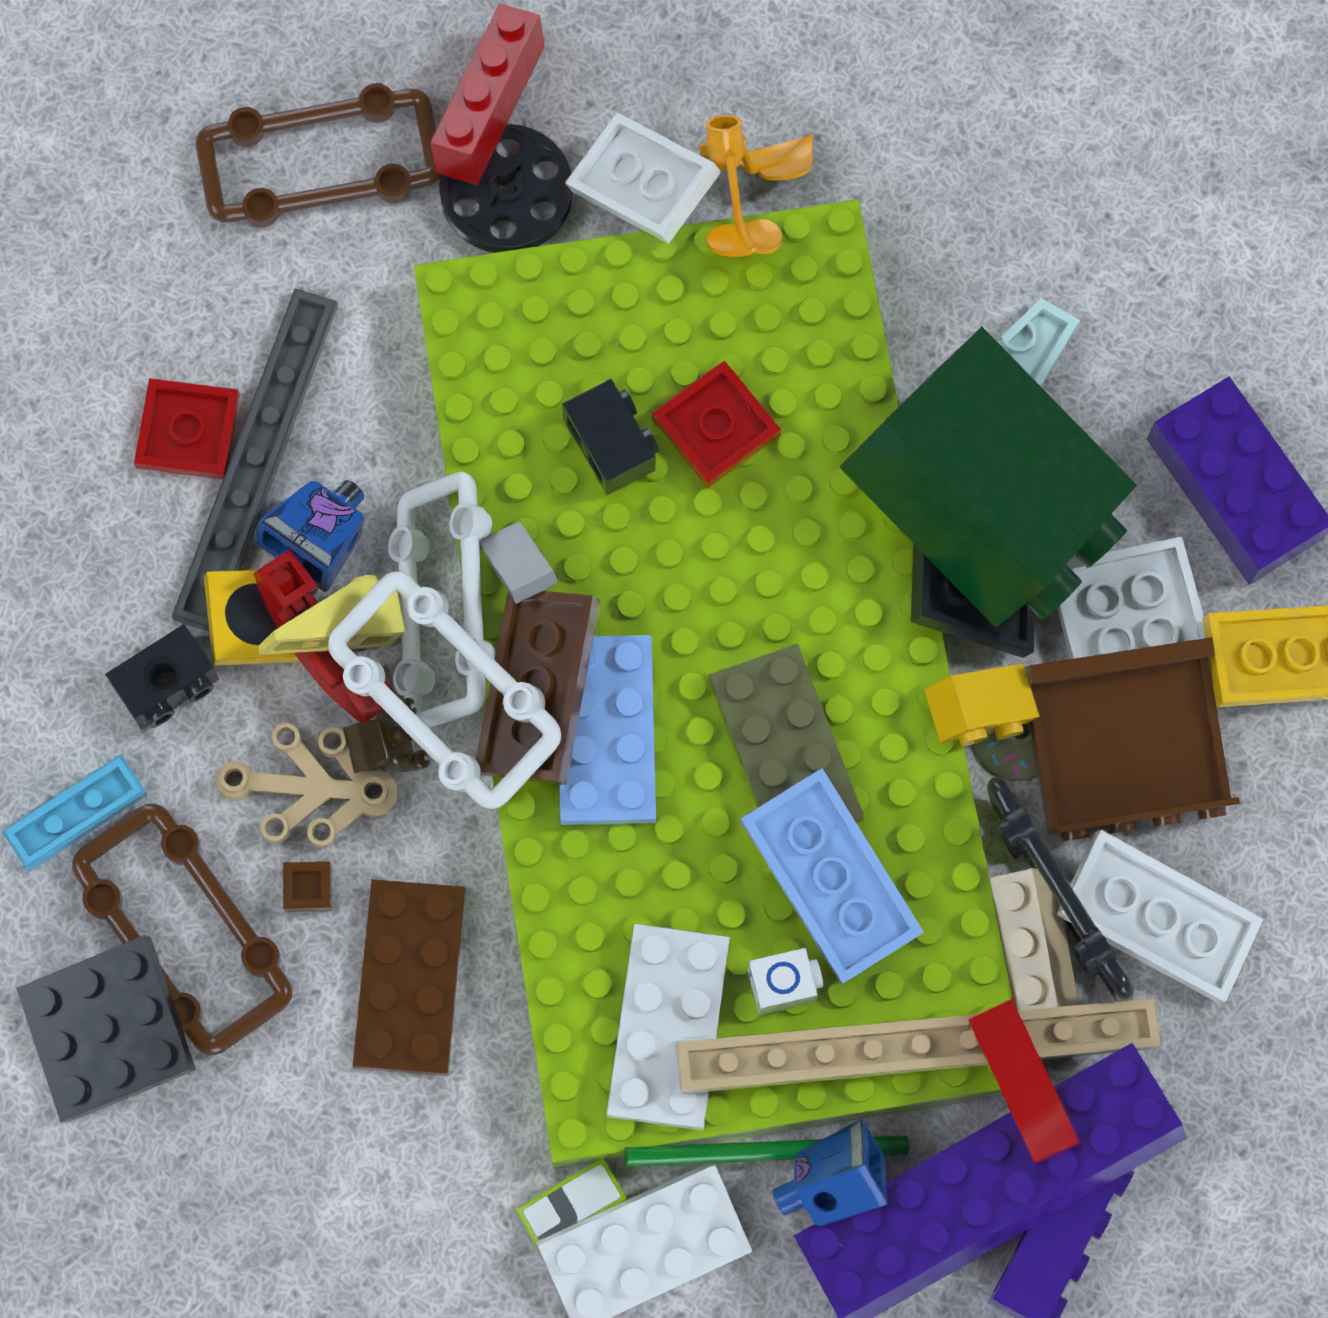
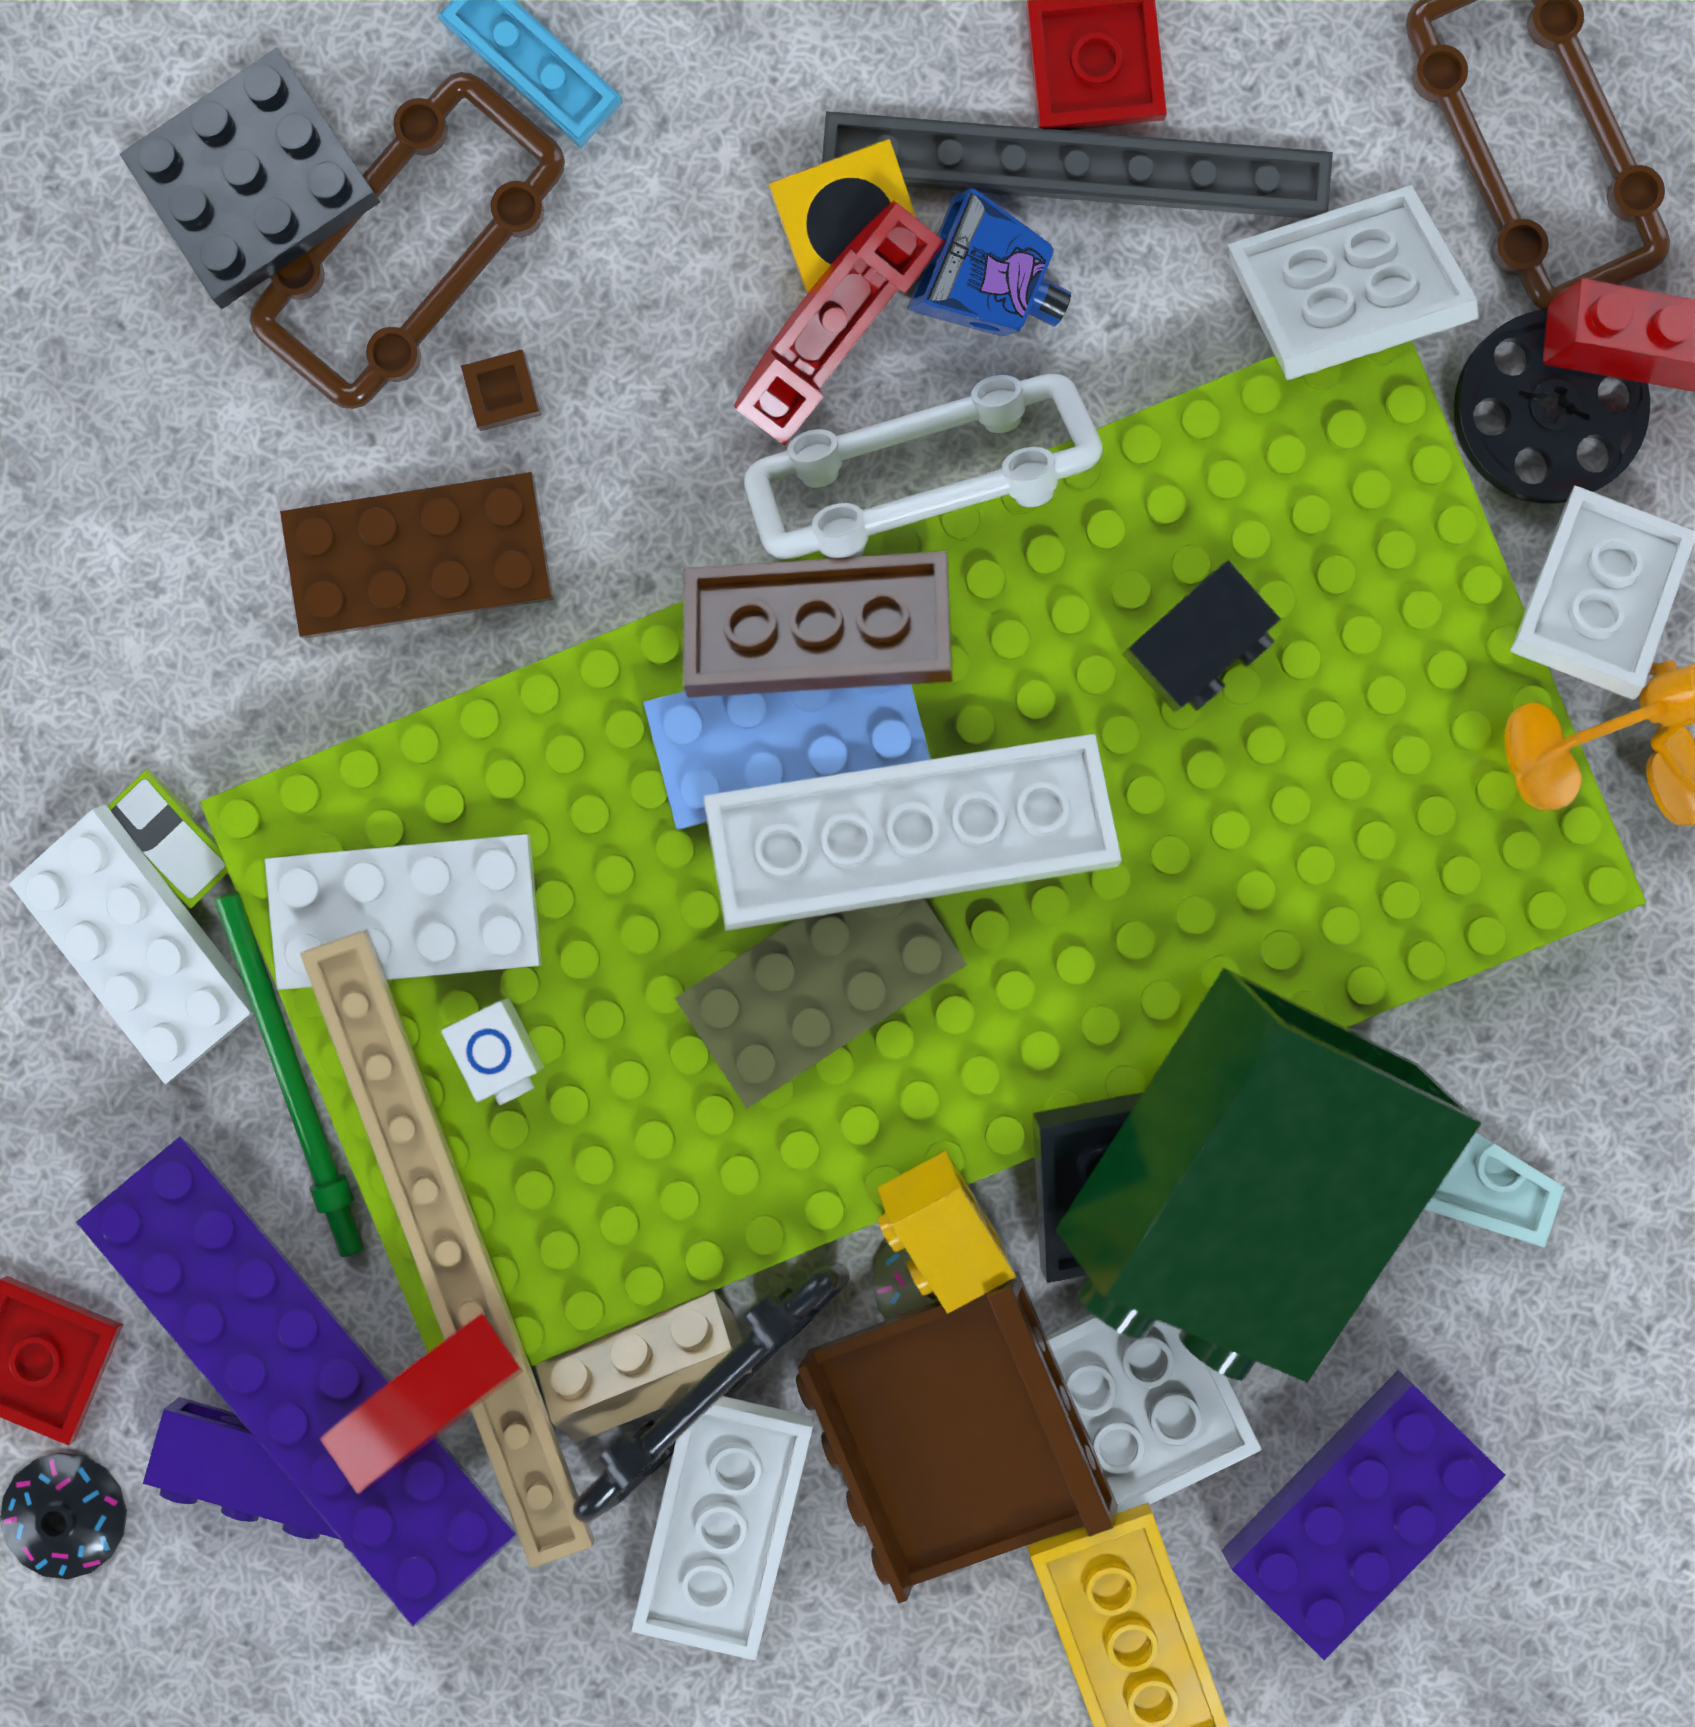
camera: 80 degrees right, 15 degrees up
(172, 653) = (720, 88): black brick -> none
(313, 627) = (875, 351): light yellow slope -> none
(314, 788) = (638, 365): tan plant -> none
(383, 744) = (712, 439): dark brown piece -> none
(390, 291) = (1352, 282): none -> white plate
(518, 562) = (985, 555): light grey tile -> none
(520, 699) = (780, 607): white bar -> none
(696, 656) = (911, 831): none -> white plate
(716, 424) = (1259, 780): red tile -> none
(831, 876) = (648, 1082): light blue plate -> none
(836, 1177) = (265, 1177): blue torso -> none

